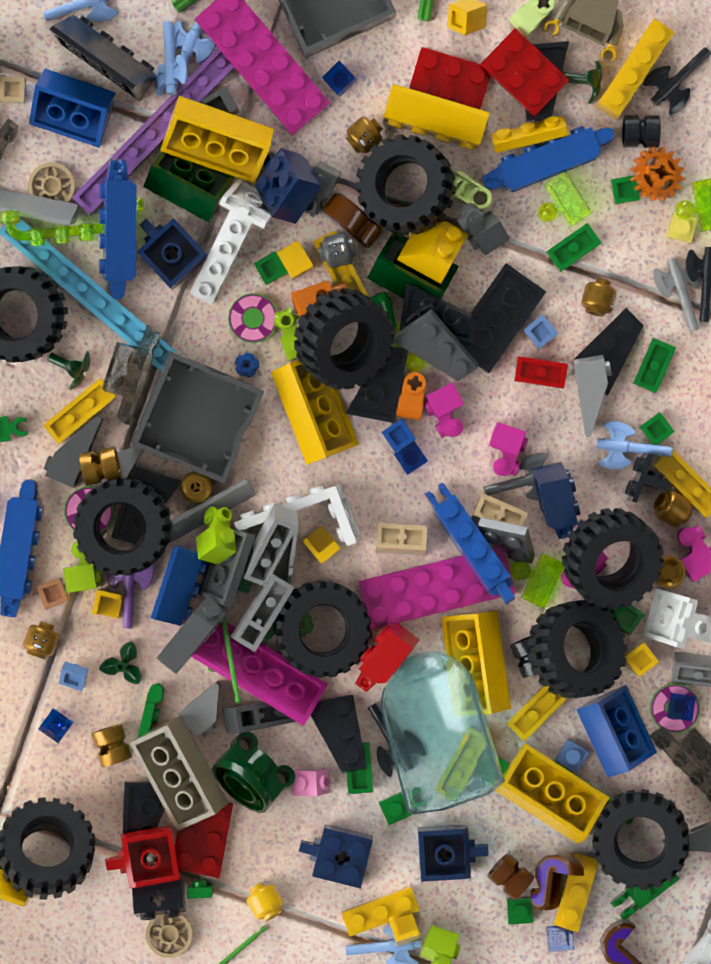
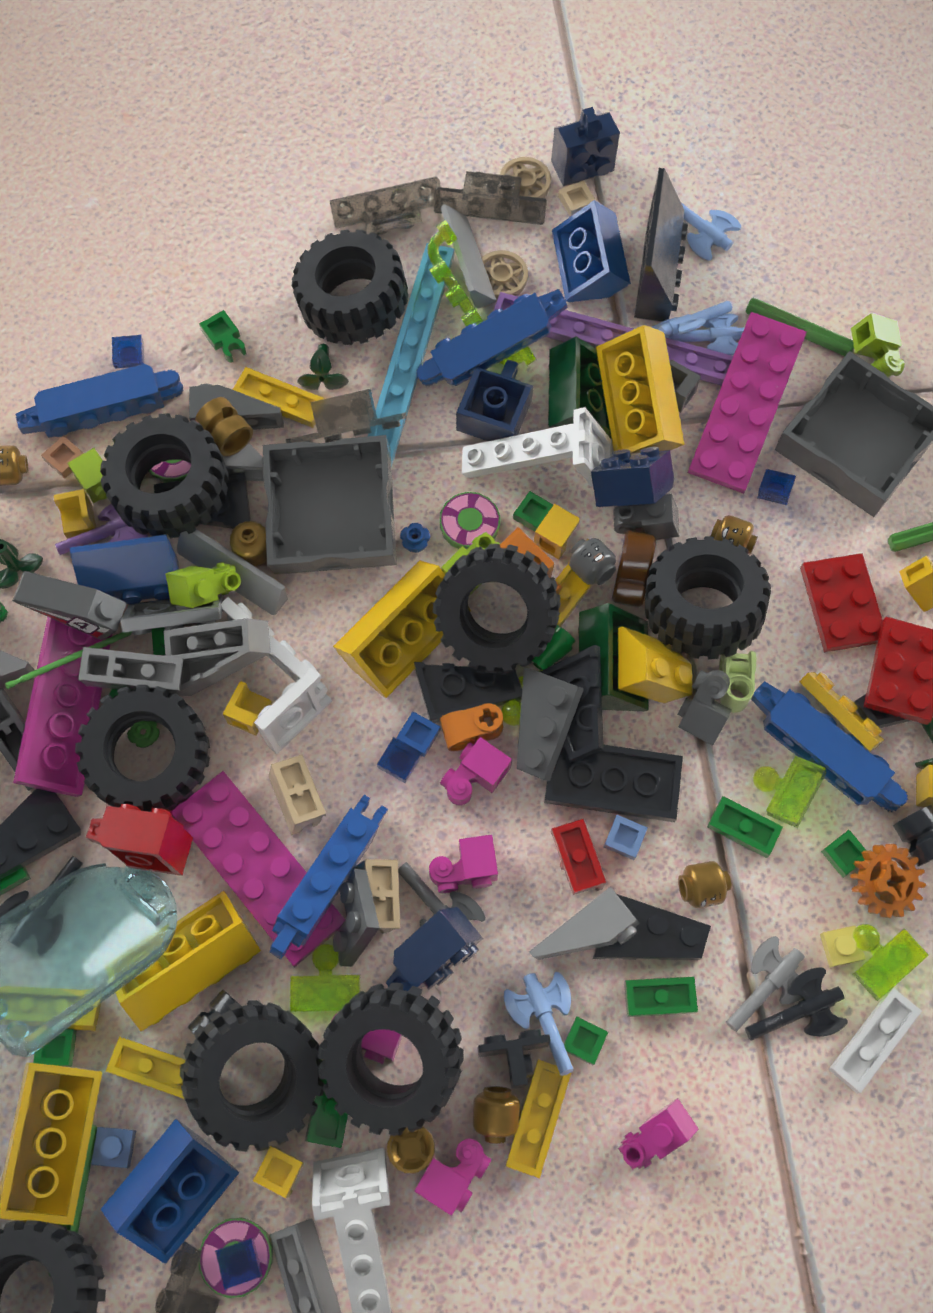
camera: 60 degrees right, 20 degrees down
(435, 117) = (801, 599): yellow slope -> none

